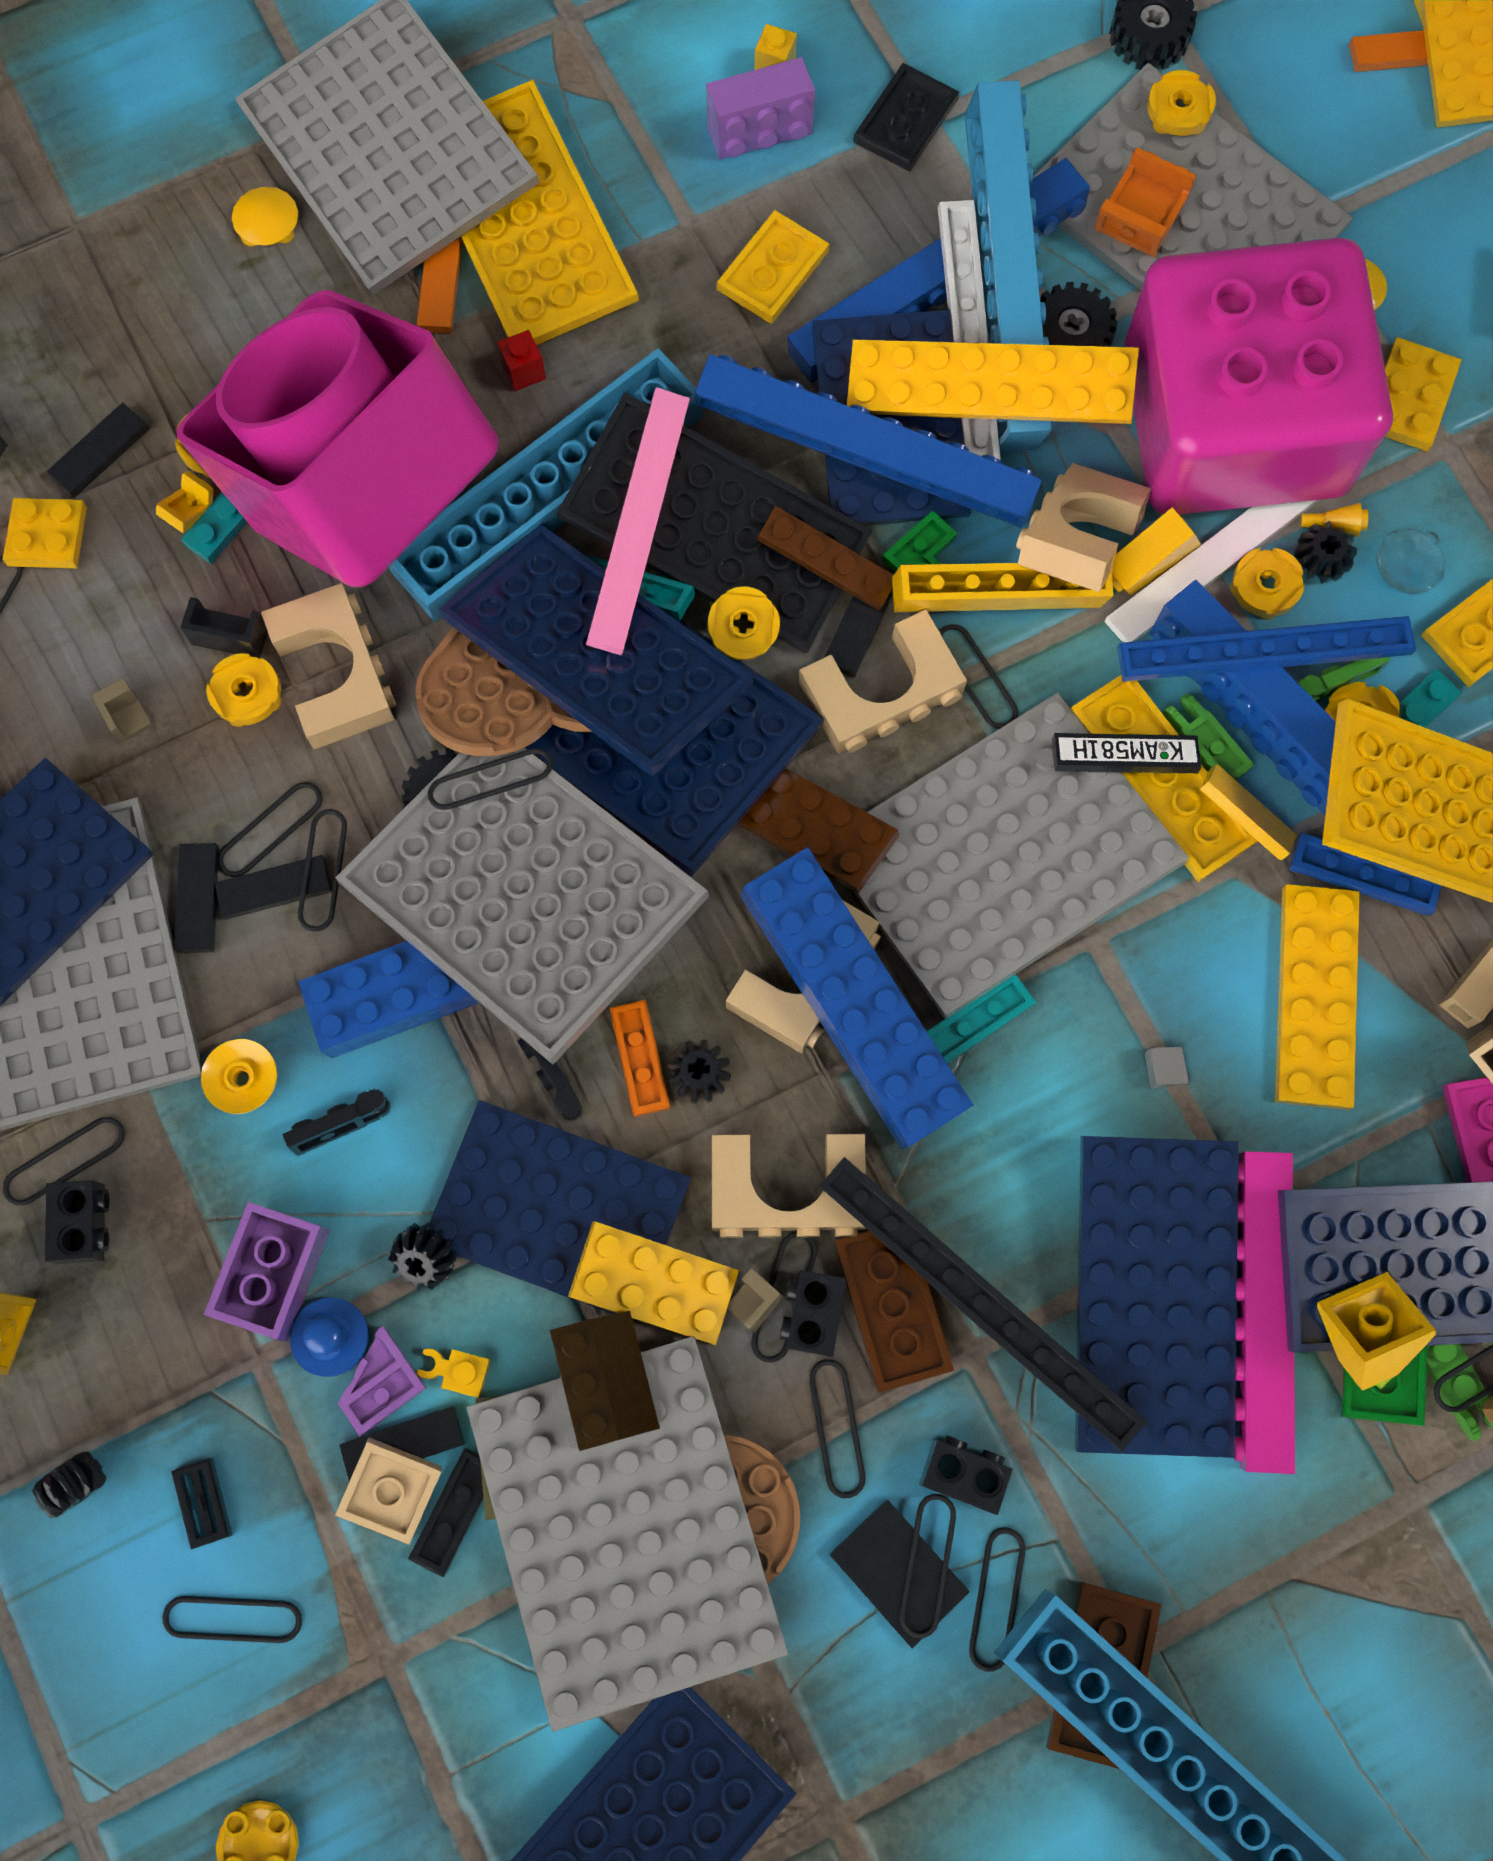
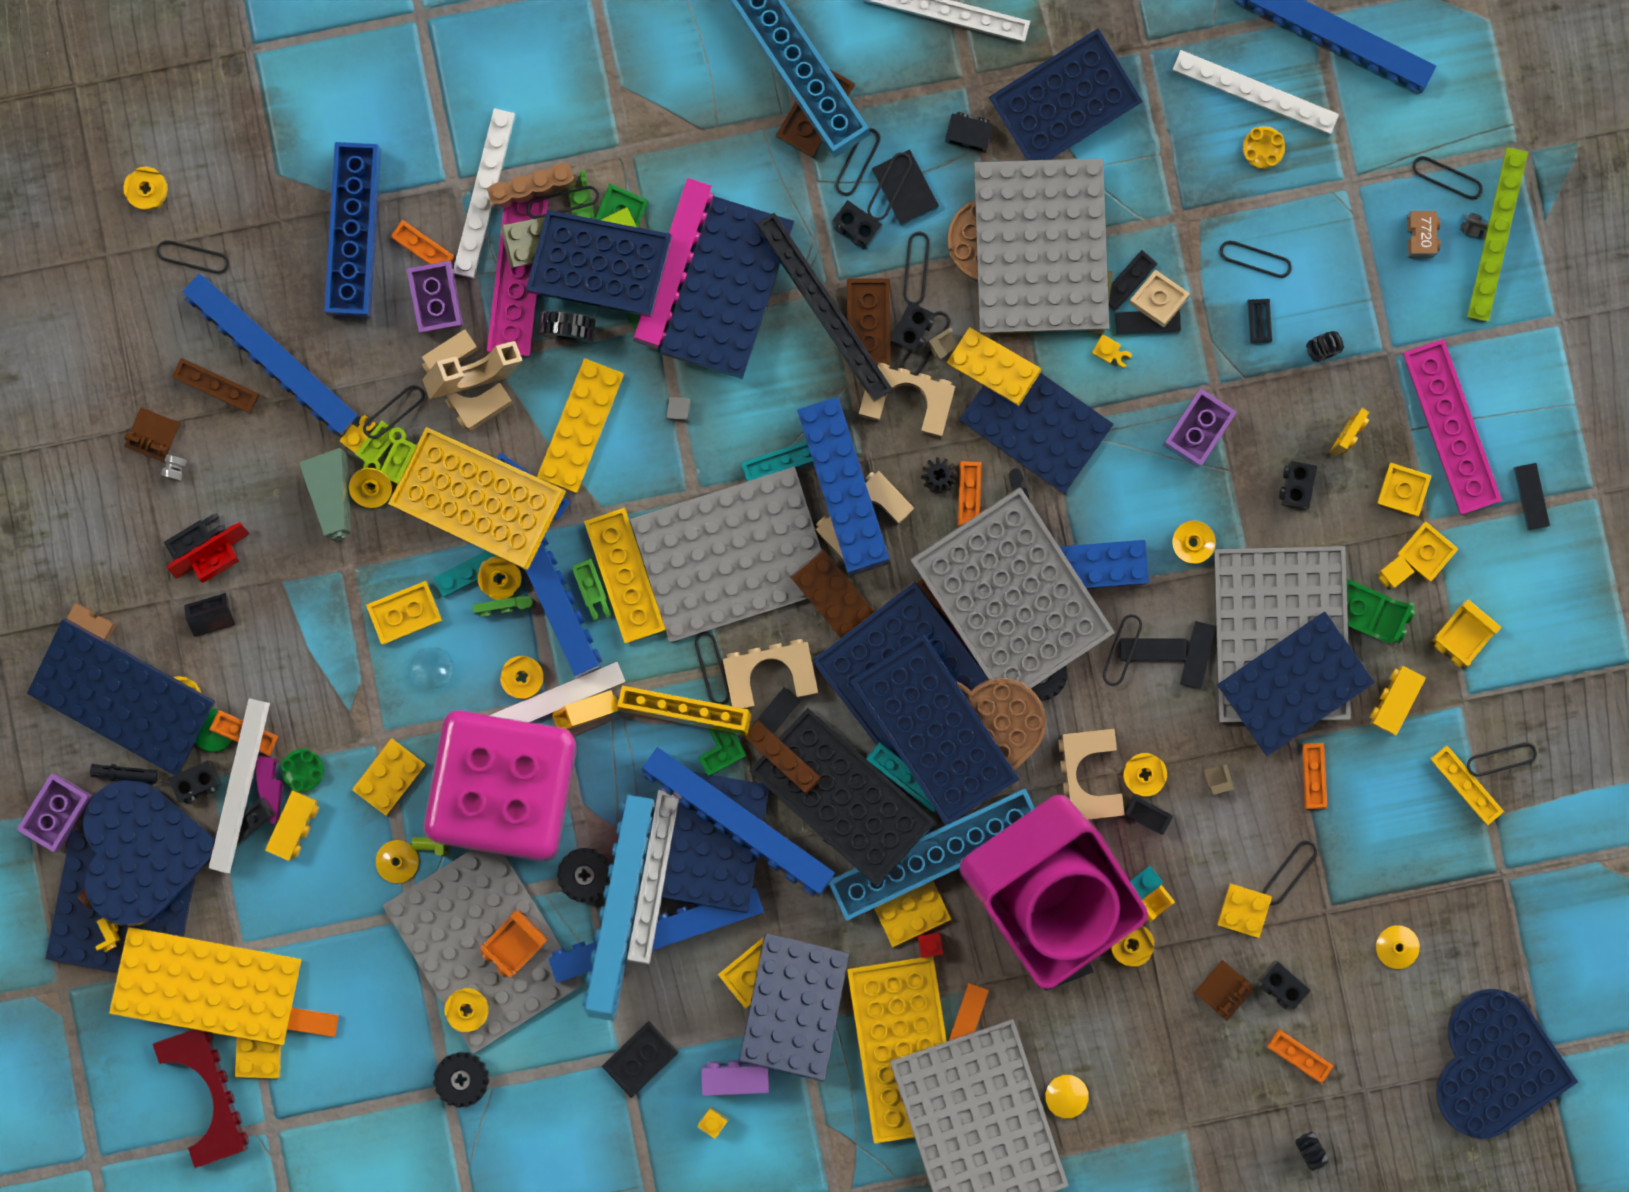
camera: 160 degrees left, 10 degrees up
(54, 413) = (1224, 990): none -> reddish brown hinge
(56, 1147) = (1303, 532): black piece -> none
(98, 450) = (1202, 958): black tile -> none
(278, 840) = (1143, 678): black piece -> none
(329, 1337) = (1174, 387): blue plate -> none
(337, 1123) = (1144, 502): black hinge -> none
(380, 1384) = (1152, 355): medium lavender wing -> none
(423, 1256) = (1114, 414): black gear -> none
(492, 792) = (1014, 675): black piece -> none
(554, 395) = (912, 913): none -> yellow plate
(604, 1380) = (1033, 319): dark brown slope -> none
(638, 522) = (889, 798): bright pink tile -> none
(702, 214) = (793, 1007): none -> dark blue plate
(758, 610) = (836, 718): yellow plate -> none
(813, 1714) = (969, 132): none -> black brick
(994, 381) = (656, 831): yellow plate -> none
(1081, 496) = (616, 757): tan arch -> none
(1126, 753) = (645, 589): tile -> none
(1248, 812) = (585, 537): yellow tile -> none
(1266, 648) = (550, 621): blue tile -> none
(1338, 551) = (484, 692): black gear -> none
(1351, 516) = (462, 703): yellow cone -> none
(1374, 1329) = (627, 233): yellow slope -> none
(1406, 1143) = (567, 327): none -> black bush

